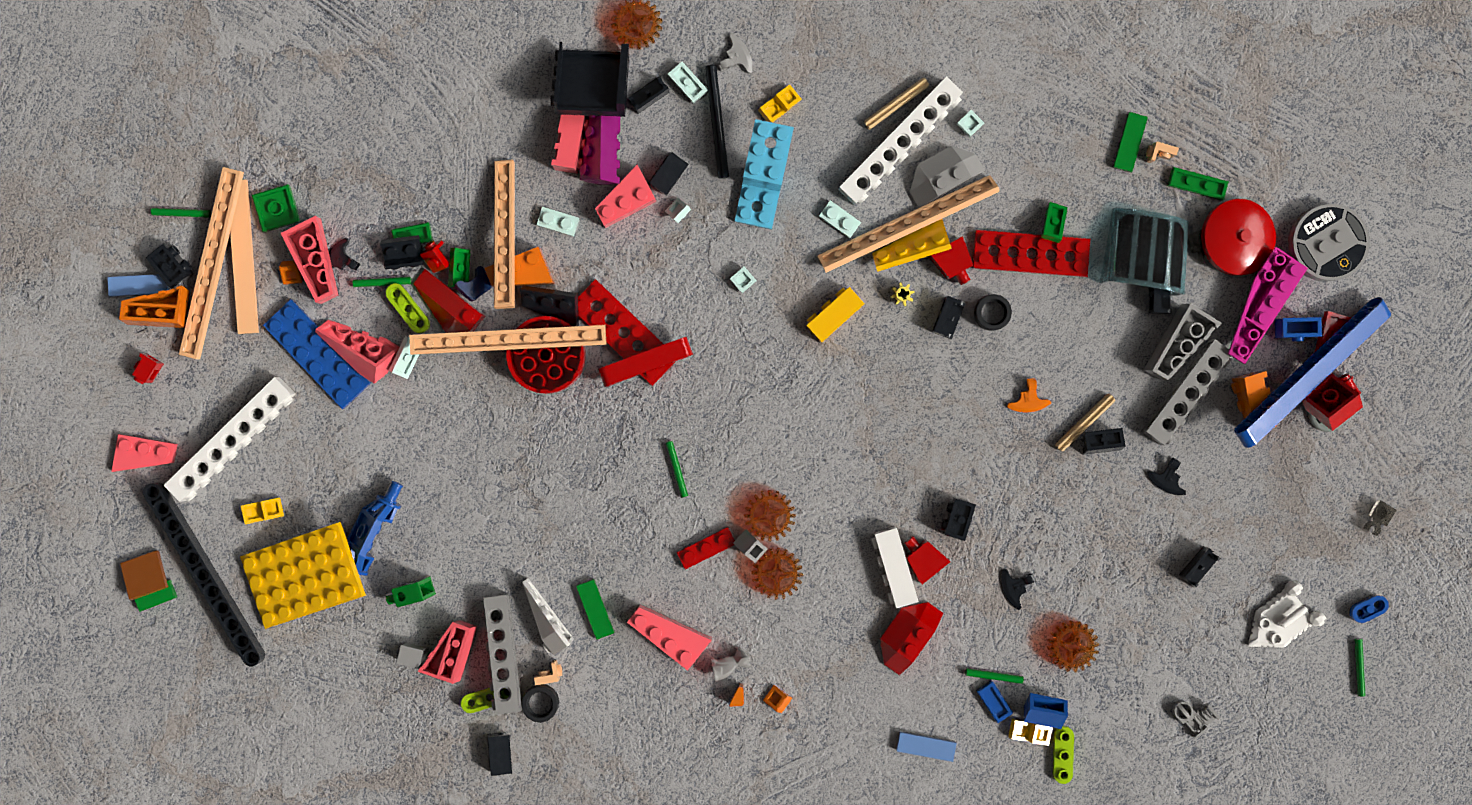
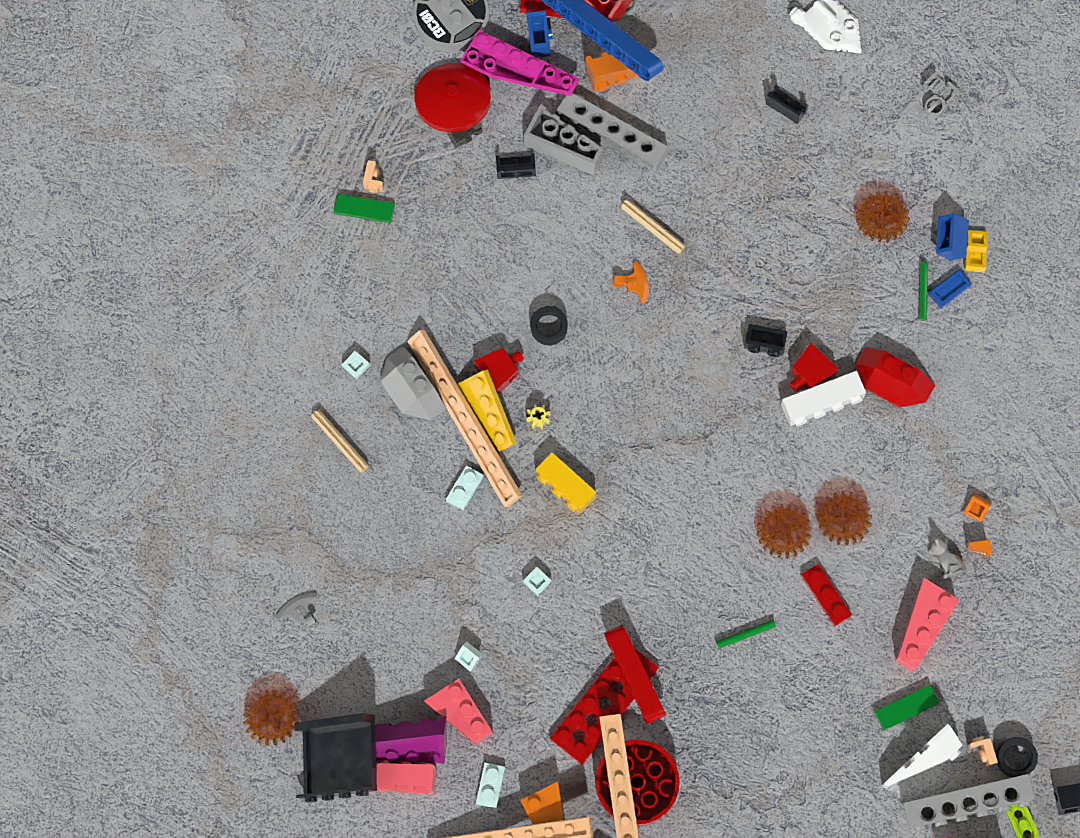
camera: 85 degrees left, 15 degrees down
(551, 303) = (580, 782): black wing -> none
(648, 94) = (345, 697): black hinge -> none
(668, 173) = (430, 670): black hinge -> none
(687, 82) = (331, 658): light aqua plate -> none
(717, 121) = (370, 624): black axle -> none
(750, 546) = (818, 547): light grey brick -> none
(763, 174) = (425, 565): medium azure bracket -> none
(779, 104) = (348, 560): yellow slope -> none
(926, 746) = (1006, 352): medium blue tile -> none
(946, 90) = (329, 385): white brick -> none
(948, 317) = (557, 369): black hinge -> none
(1015, 588) = (829, 278): black piece -> none
(1021, 263) = (474, 285): red plate -> none
(1054, 222) = (451, 273): green plate -> none
(1063, 746) = (987, 220): lime plate -> none
(1103, 441) = (670, 206): black hinge -> none
(1146, 250) = (474, 183): windscreen -> none
(1168, 479) = (701, 141): black piece -> none
(1197, 183) = (401, 141): green tile -> none

